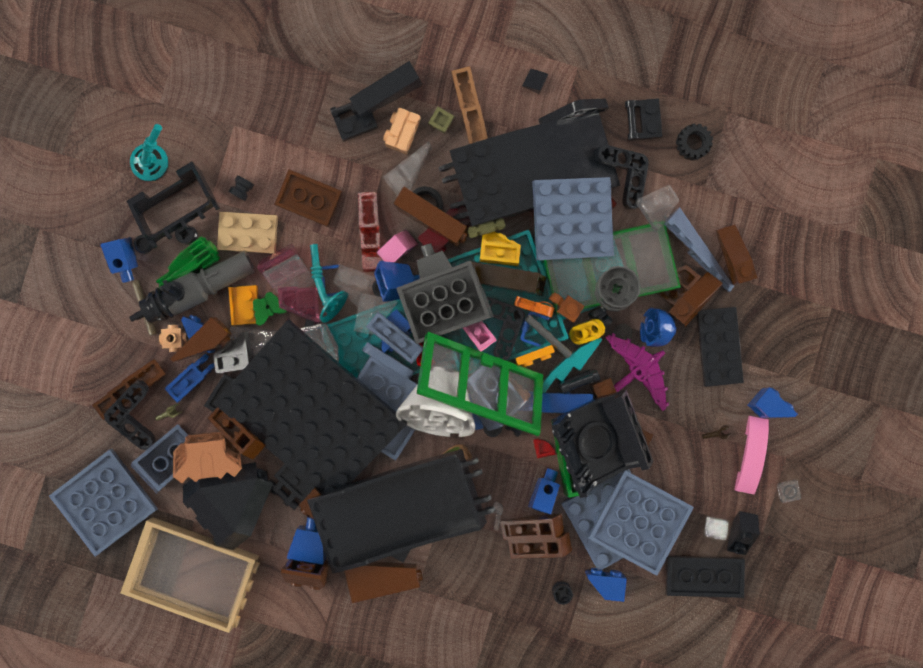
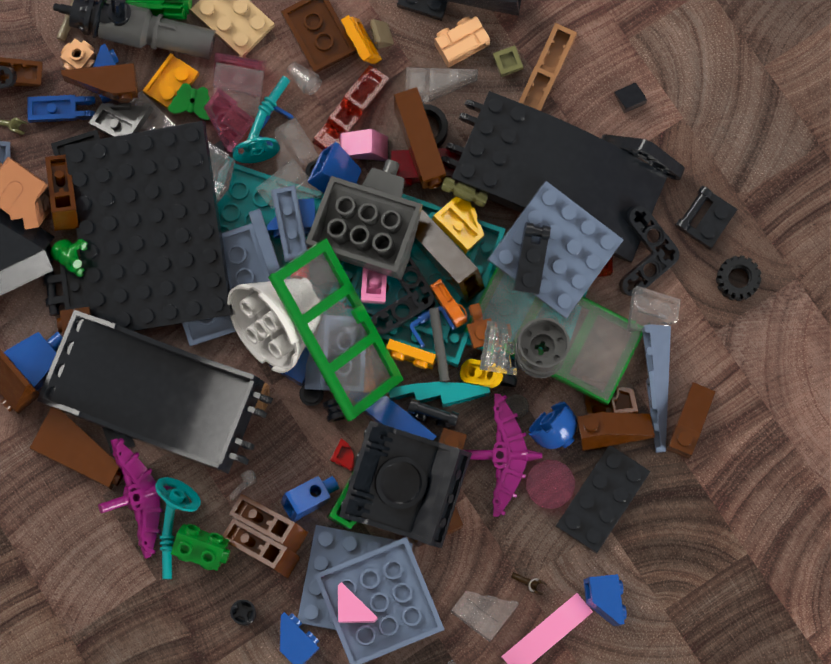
camera: 40 degrees right, 10 degrees down
(273, 468) = (66, 254): none -> green piece
(324, 235) = (304, 78): none -> clear cone
(339, 181) = (361, 40): none -> light orange plate
(348, 167) = (381, 34): none -> dark tan slope
(442, 574) = (138, 496): none -> magenta bar
(463, 563) = (174, 500): none -> teal dish
(504, 575) = (200, 547): none -> green brick
(566, 238) = (531, 259): none -> black plate
(589, 312) = (497, 349): none -> clear wing
(631, 542) = (351, 608): none -> bright pink slope
(681, 363) = (550, 484): none -> clear pink tile
(705, 474) = (483, 613): none -> clear wing

